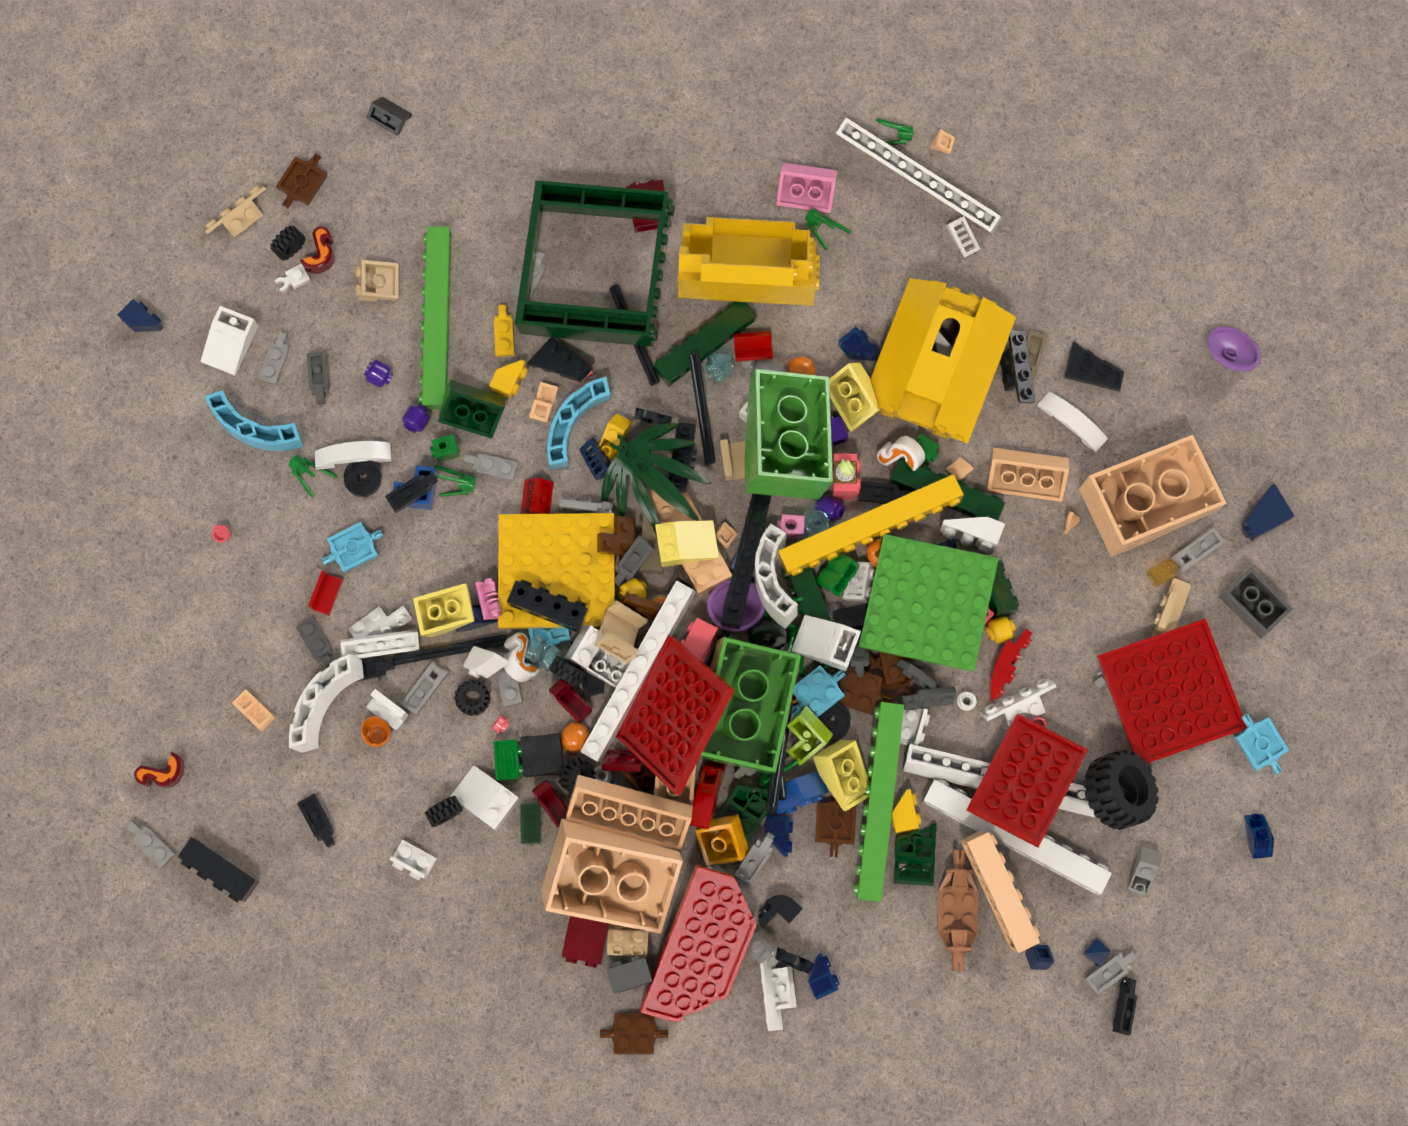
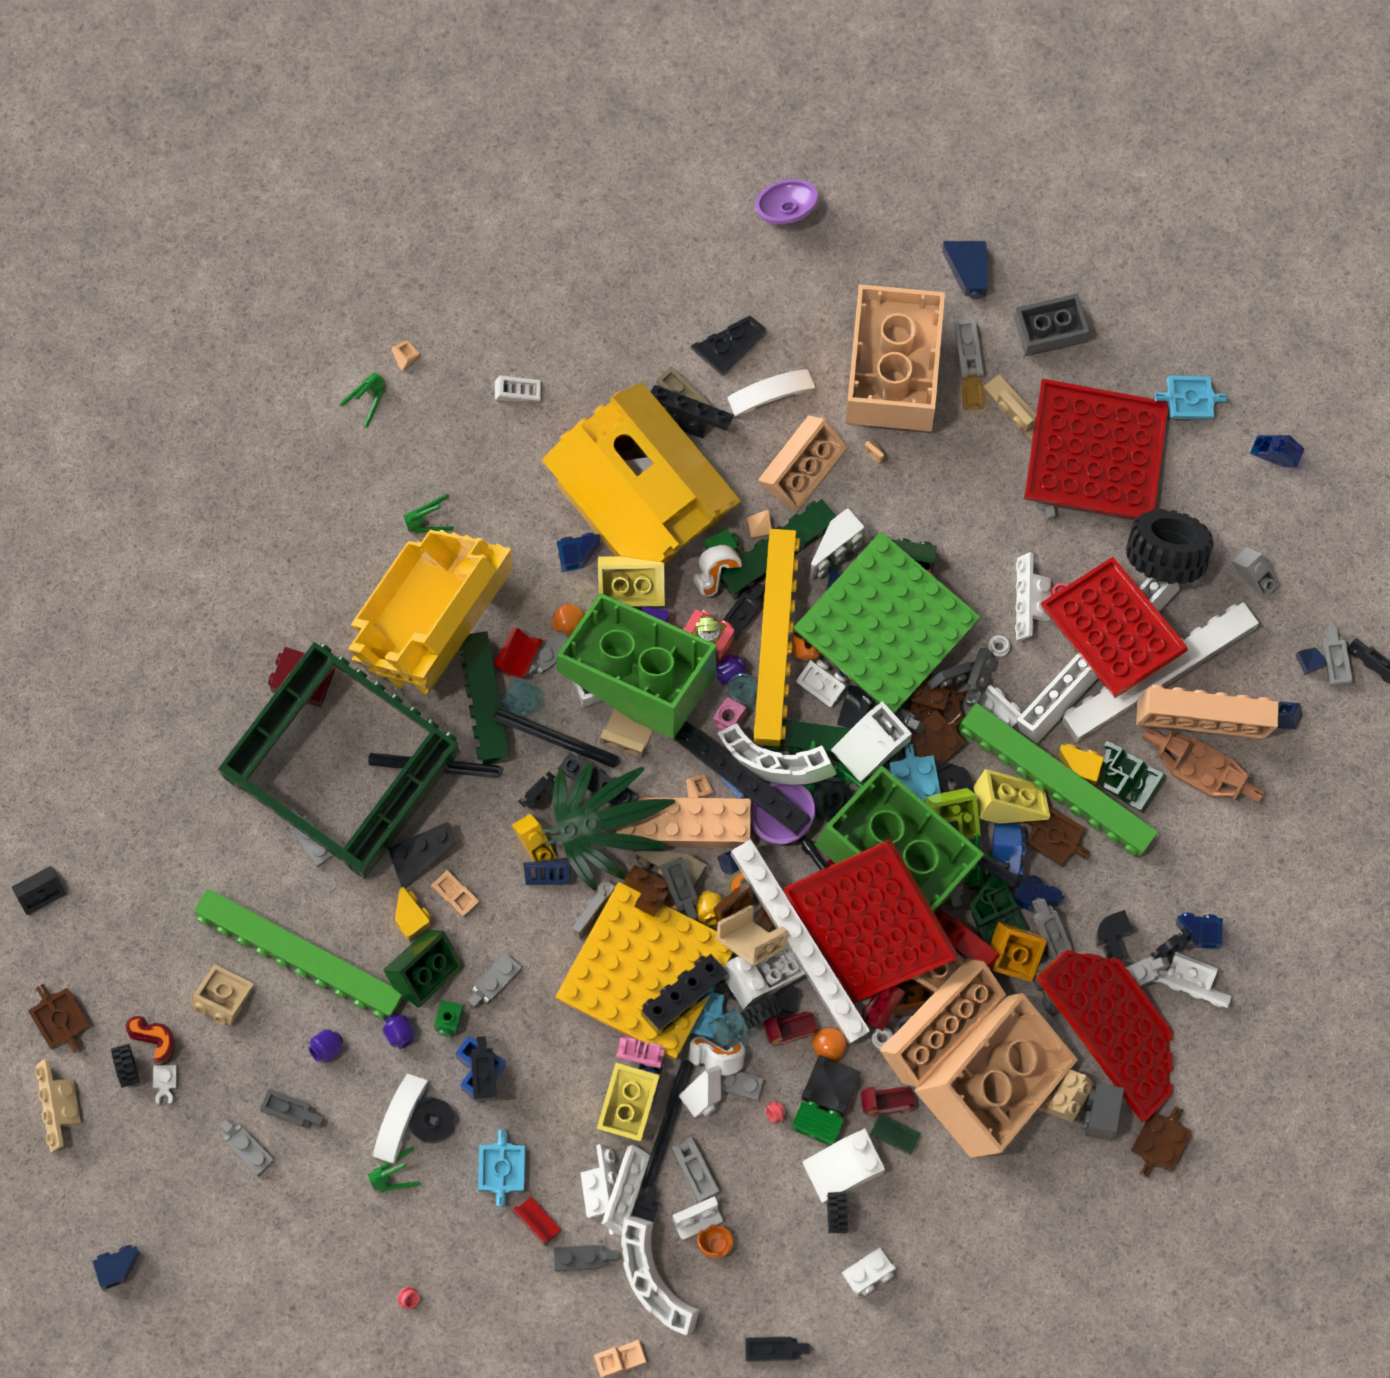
camera: 65 degrees left, 5 degrees down
(228, 340) = (198, 1184): white slope -> none
(249, 432) = (312, 1212): medium azure brick -> none
(464, 481) = (496, 1017): green plant -> none
(472, 686) = (736, 1113): black tyre -> none
(503, 333) = (354, 895): yellow hinge -> none
(537, 496) = (553, 953): red panel -> none
(568, 415) = (489, 878): medium azure brick -> none
(570, 768) = (870, 1061): black tyre -> none
(585, 941) = (1044, 1140): dark red brick -> none
(686, 542) = (693, 824): light yellow slope -> none
(700, 638) = (797, 862): coral brick -> none
(806, 187) = (376, 510): bright pink slope -> none
(837, 574) = (805, 698): green brick -> none
(919, 175) = (430, 395): white brick -> none
(1000, 629) = (947, 573): yellow head -> none
(1002, 669) = (989, 594): red slope -> none

